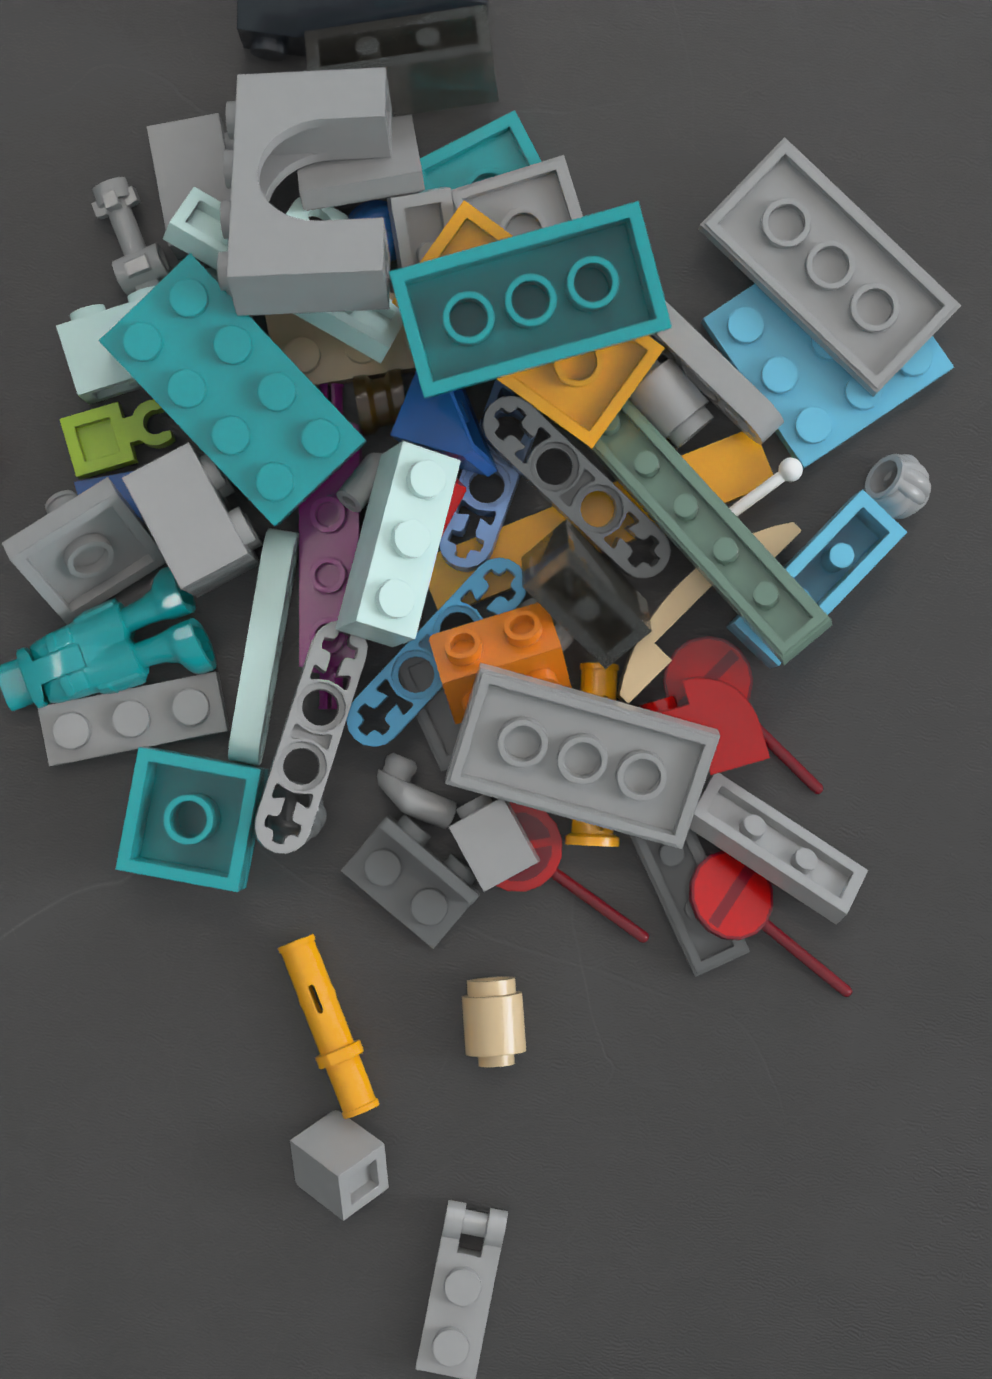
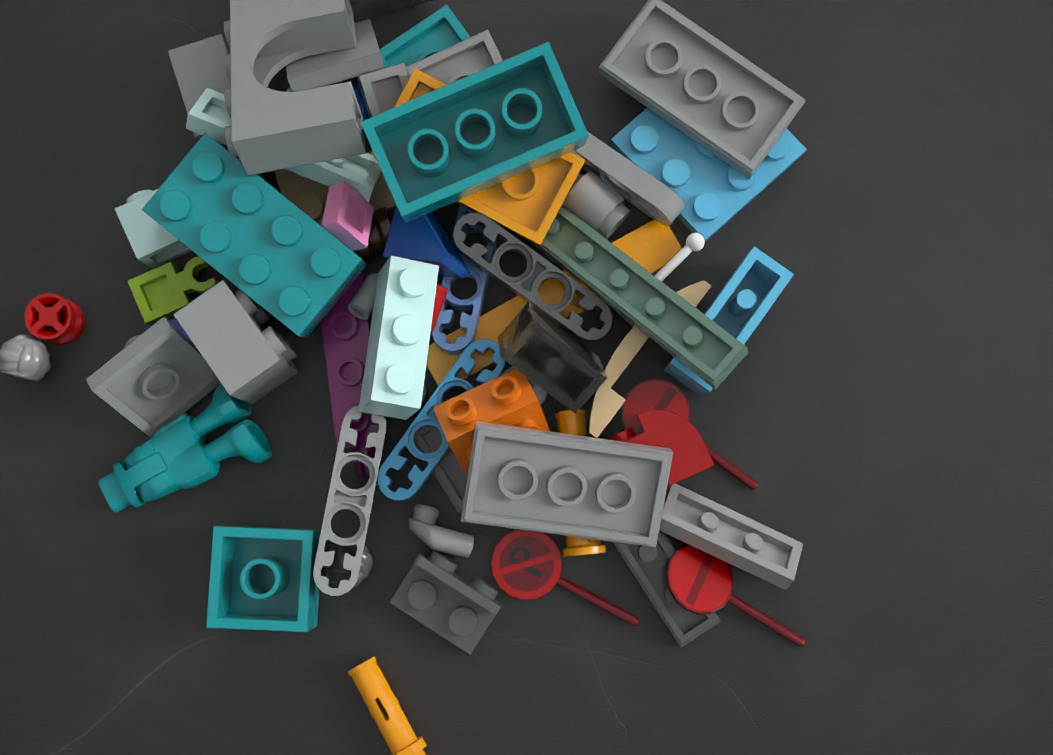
camera: 10 degrees left, 5 degrees down
(134, 719) = (212, 504): light grey plate -> none
(140, 264) = (153, 113): light grey bar -> none
(263, 646) = (306, 435): light aqua beam -> none
(353, 380) = (347, 216): none -> bright pink plate
(492, 840) = (505, 562): light grey brick -> none
(493, 1021) = (526, 706): tan brick -> none
(899, 485) = (780, 241): light grey piece -> none

